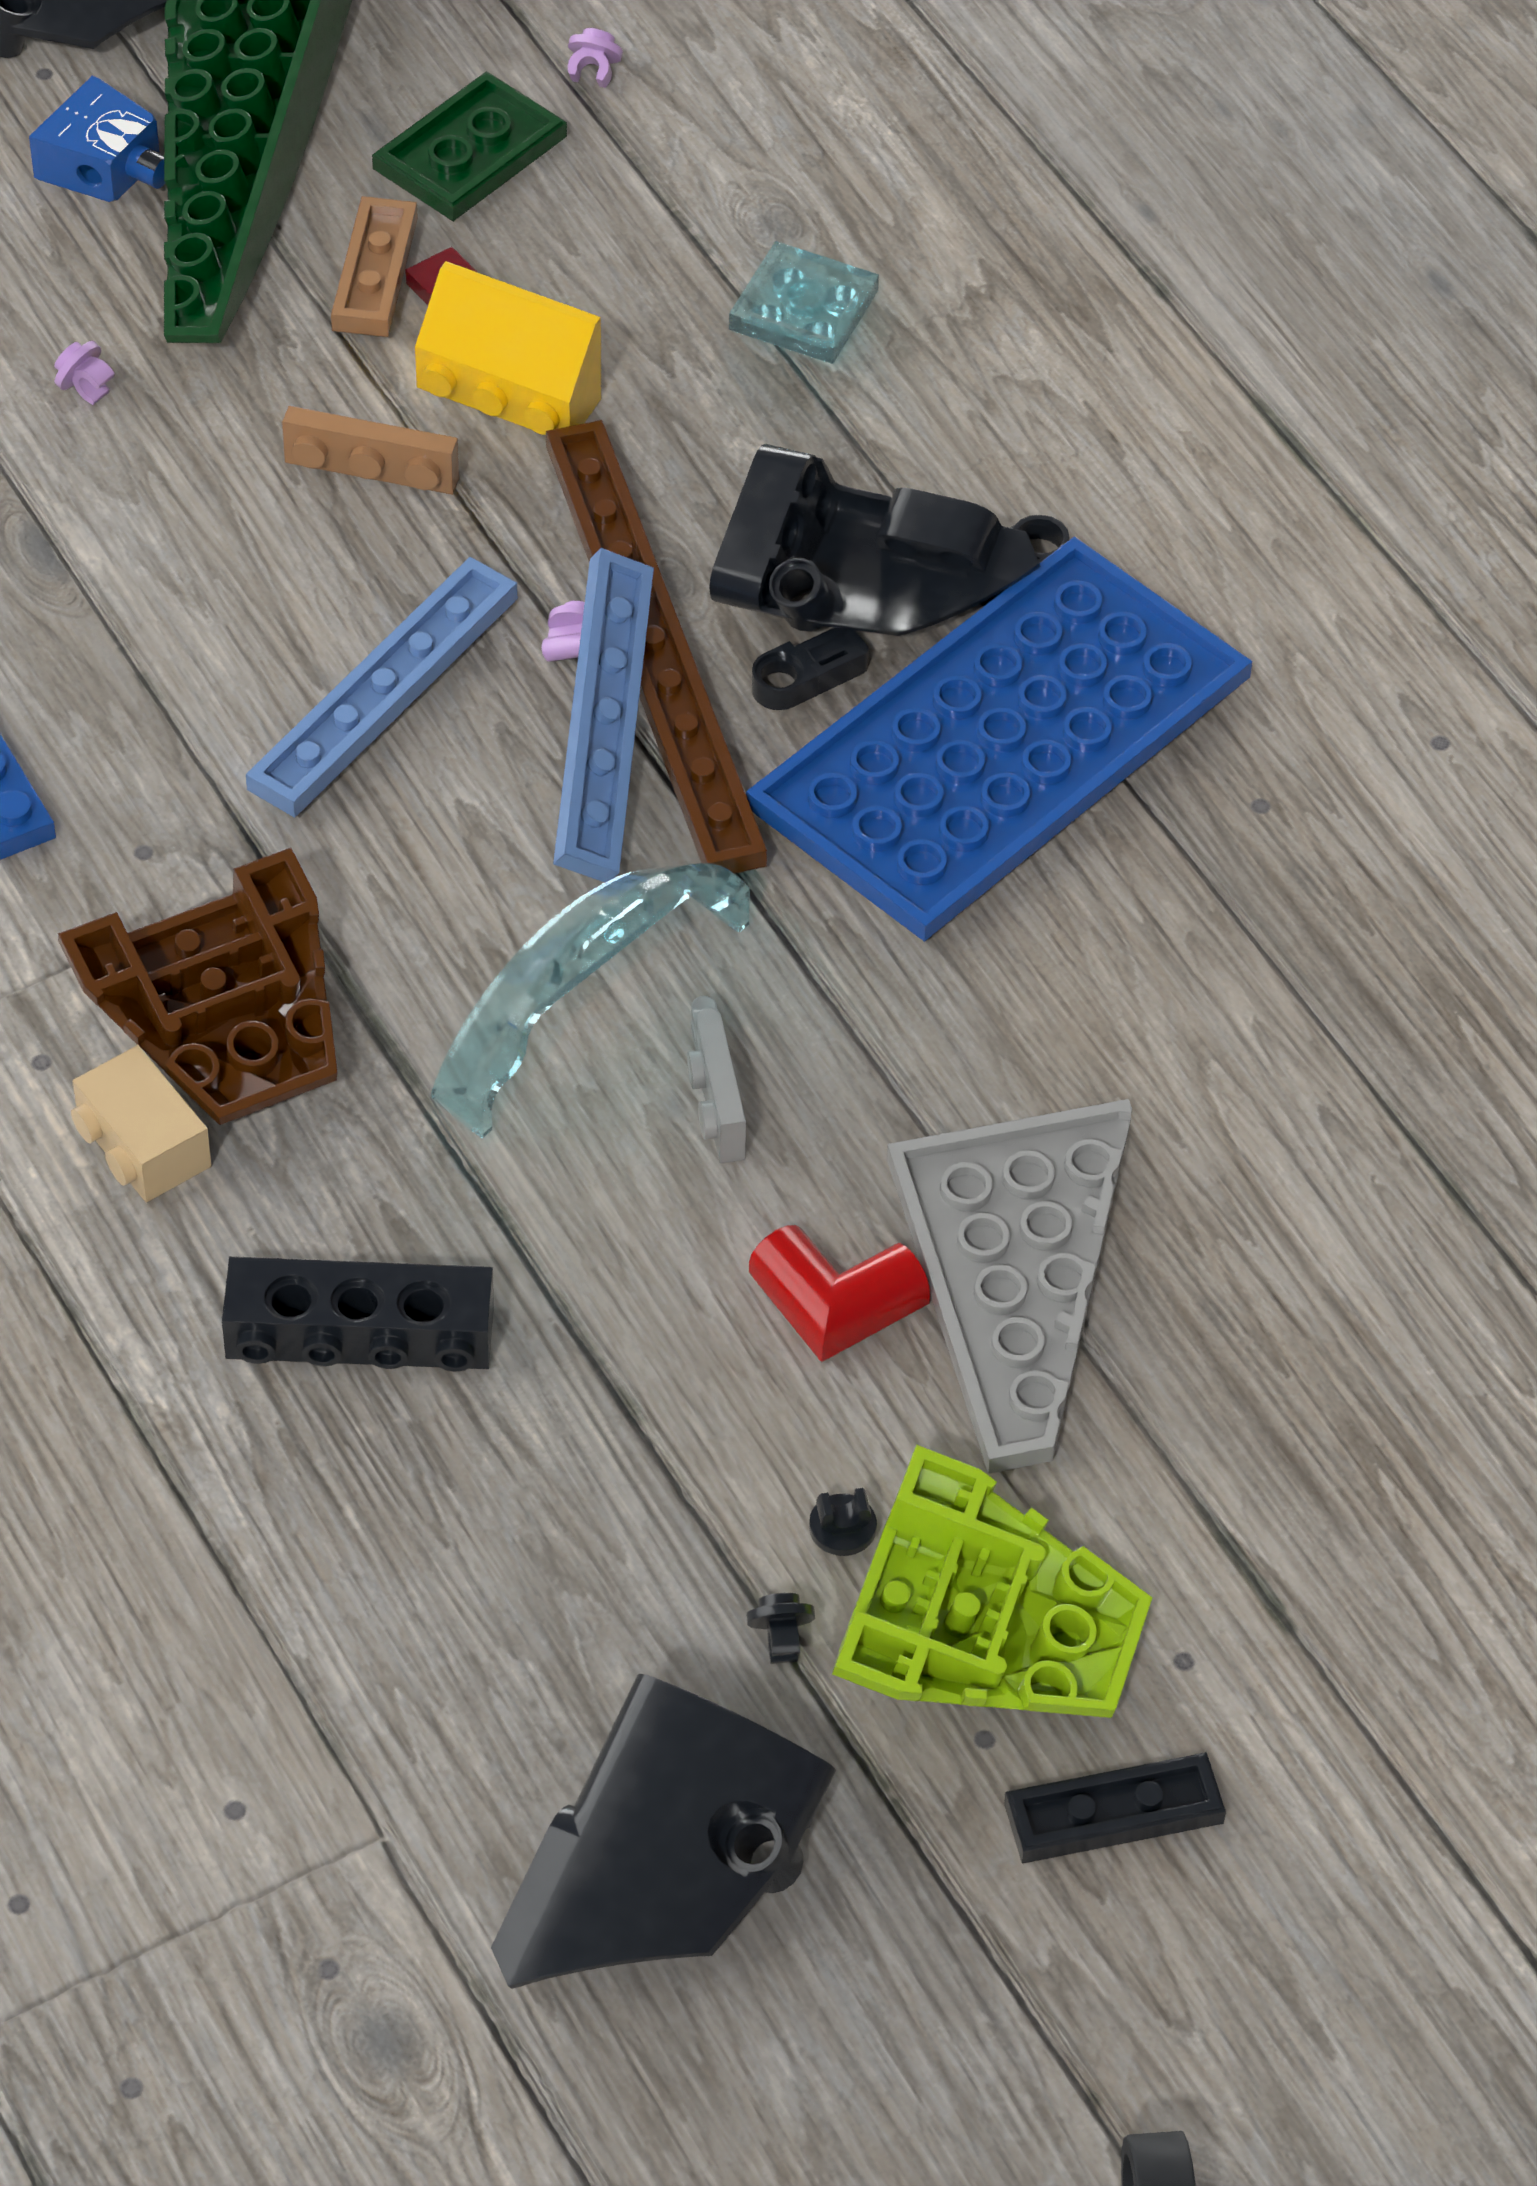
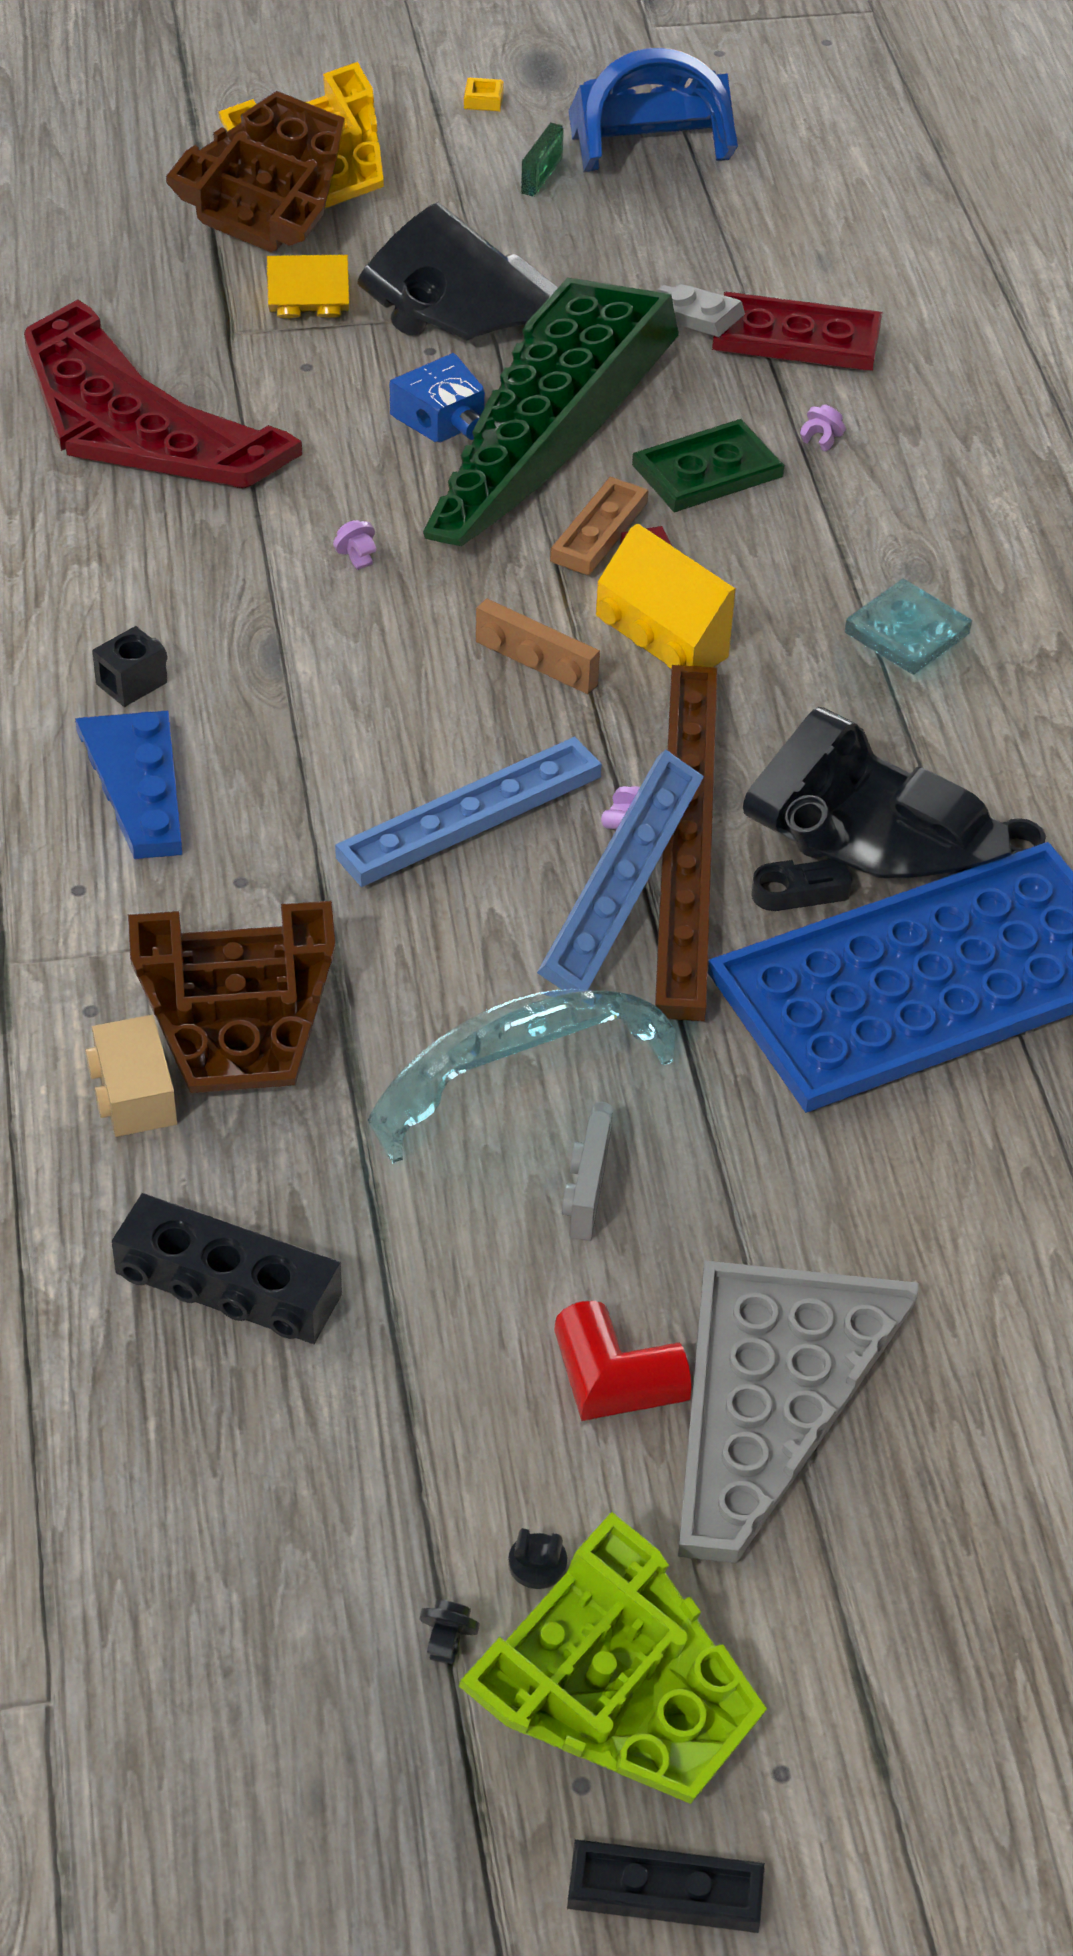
camera: 20 degrees right, 5 degrees down
(662, 1840) = (257, 1786): black panel -> none

